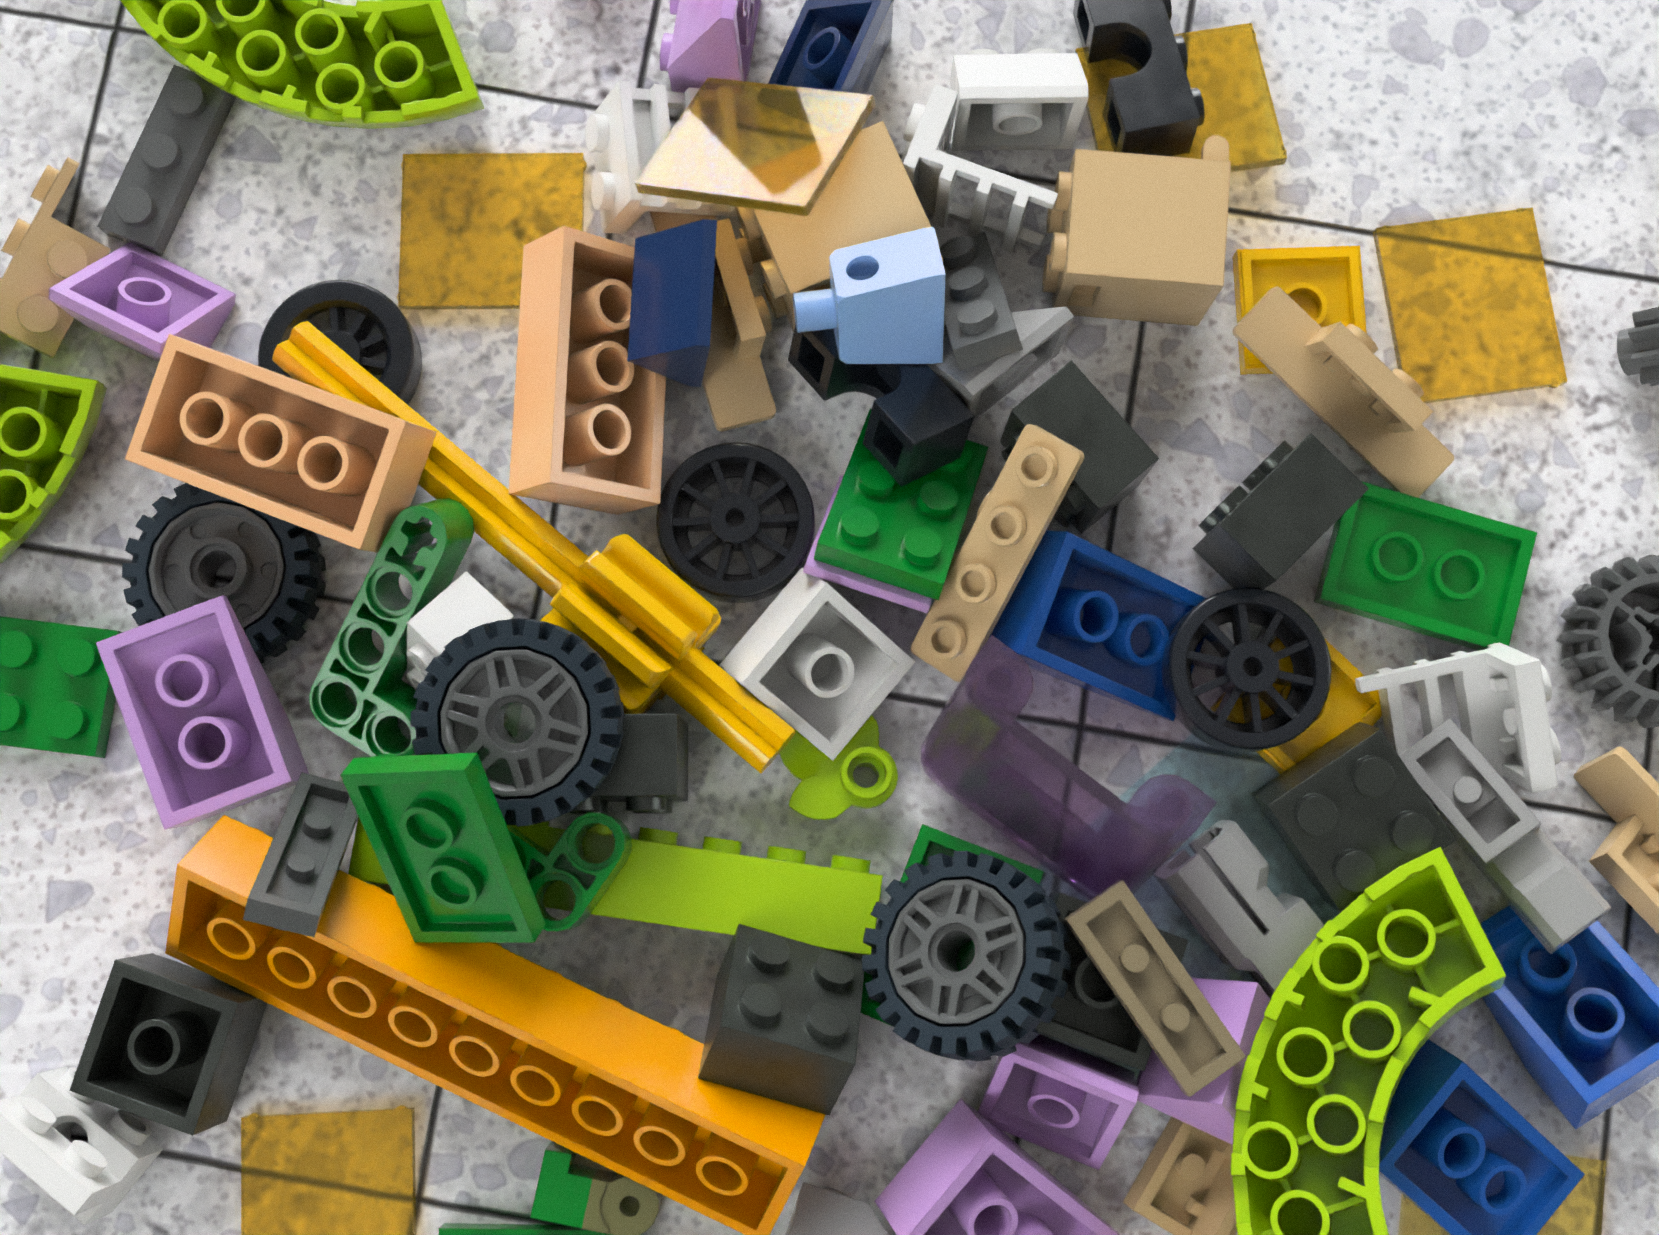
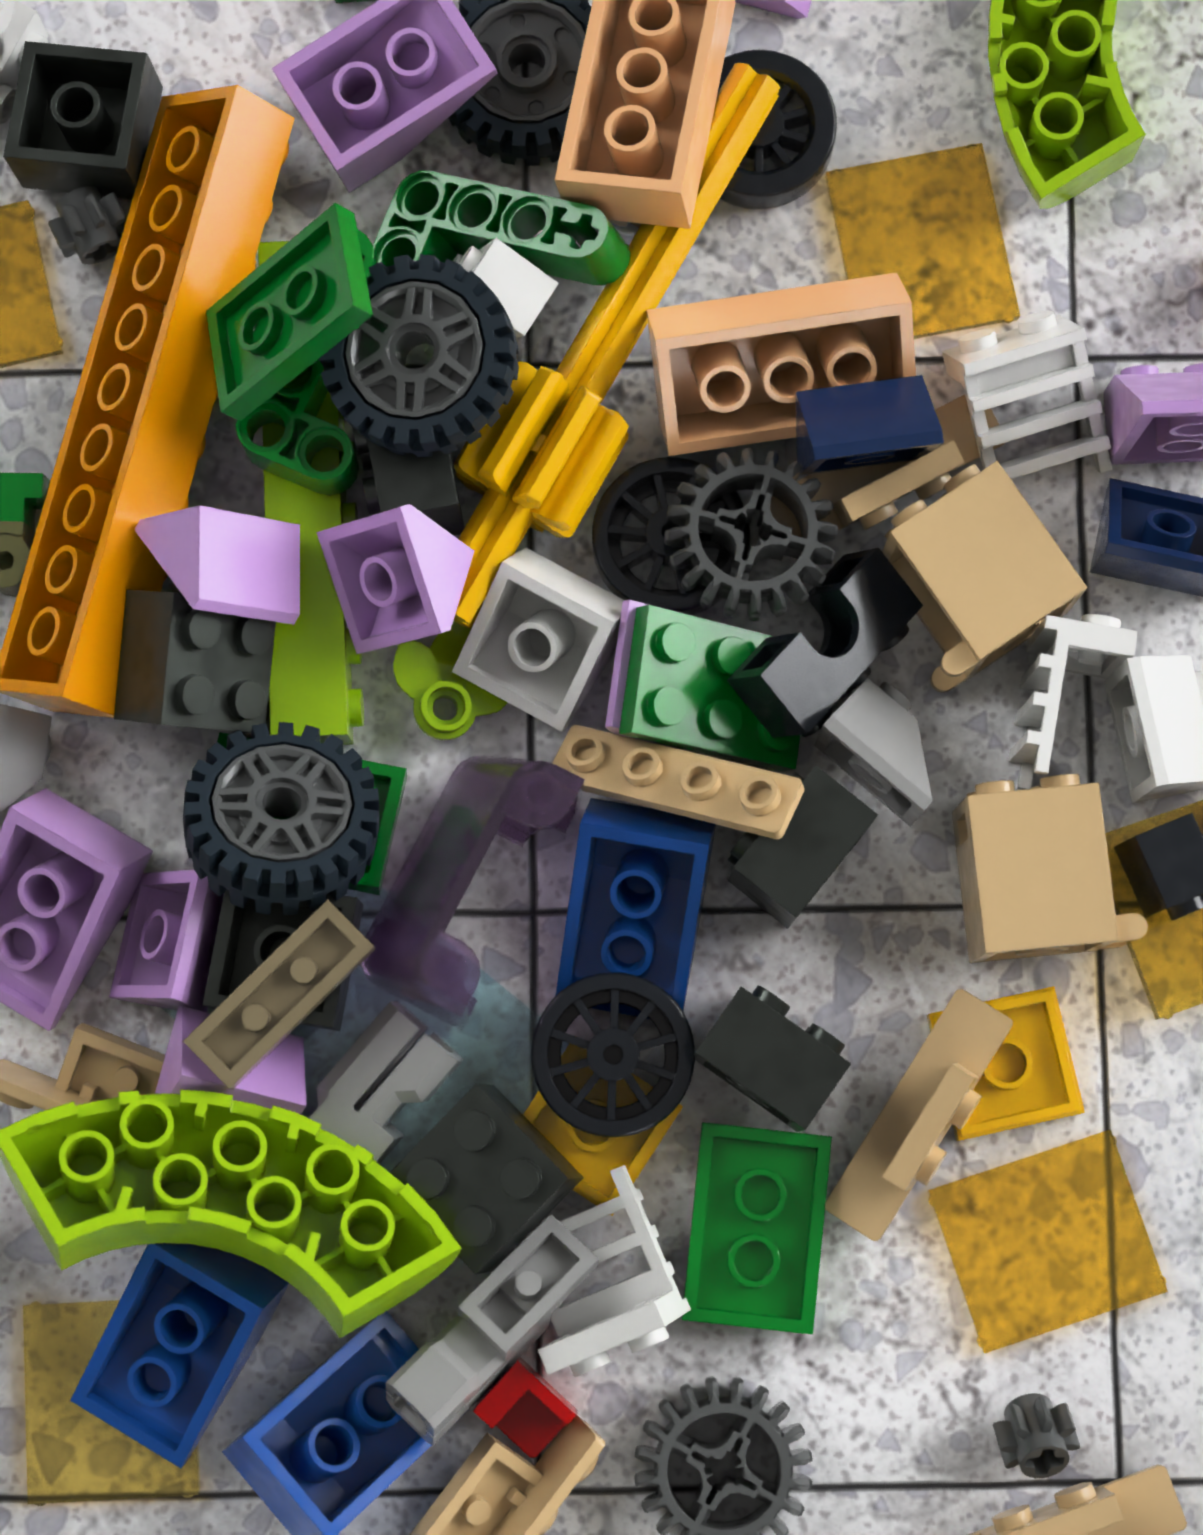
camera: 80 degrees right, 0 degrees up
(285, 1055) = (88, 224): none -> dark grey gear
(303, 857) = (261, 192): dark grey plate -> none
(693, 965) = (229, 561): none -> lavender slope
(714, 410) = (765, 483): none -> dark grey gear
(738, 794) = (395, 576): none -> lavender slope
(756, 145) = (1039, 471): clear yellow piece -> none
(882, 301) = (898, 618): light blue torso -> none
(976, 303) = (931, 717): dark grey plate -> none
(1572, 815) = (525, 1408): none -> red panel

